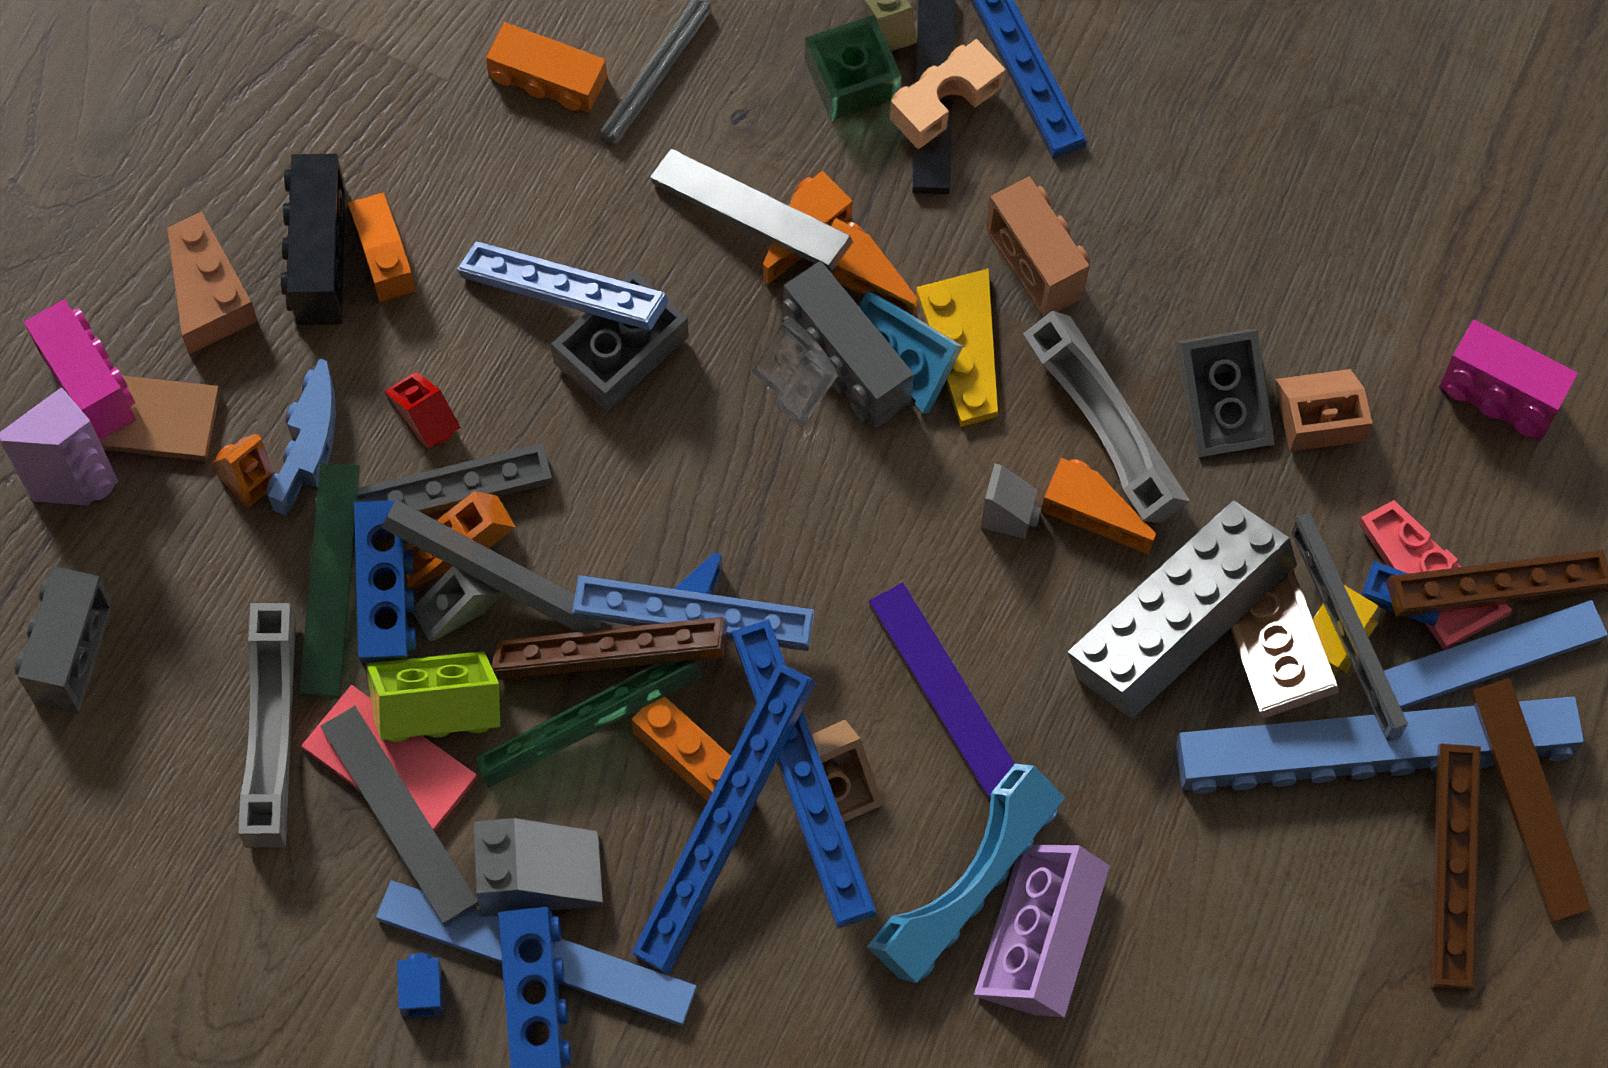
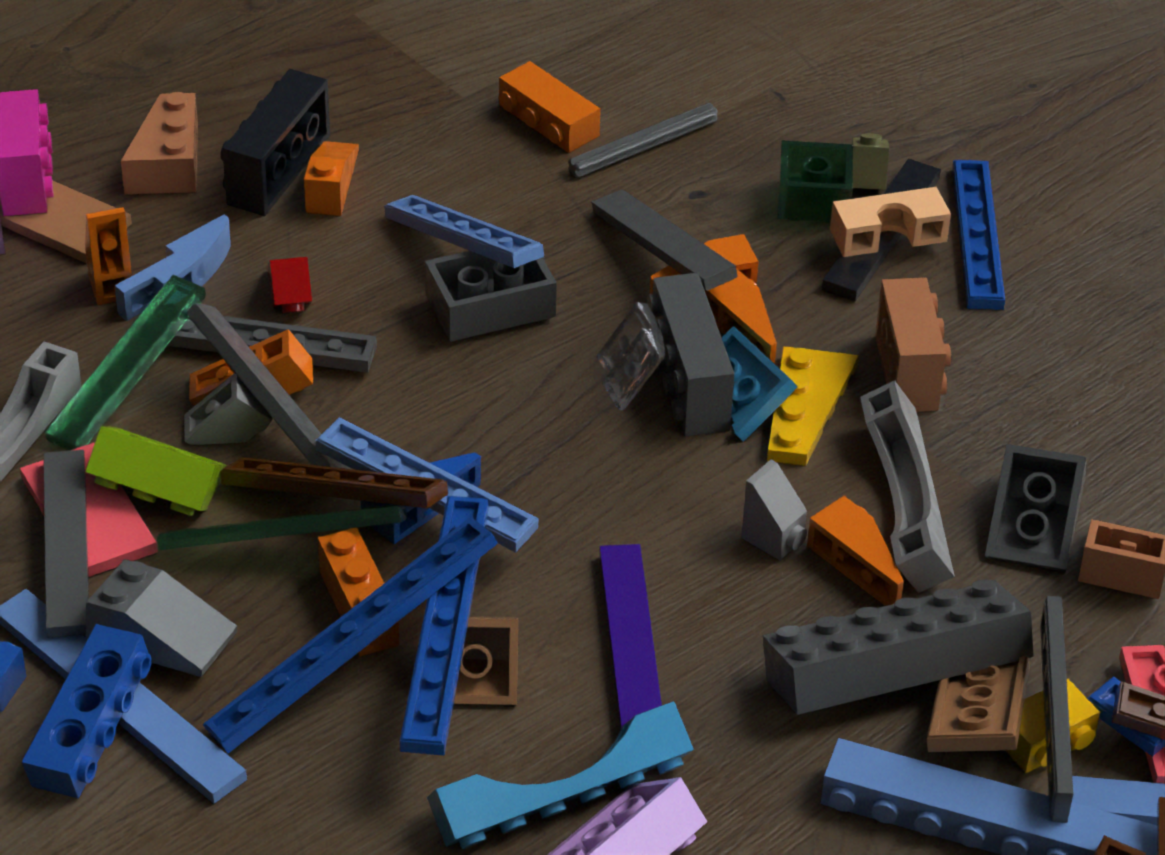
camera: 25 degrees right, 25 degrees down
(373, 642) = (165, 379): blue brick -> none

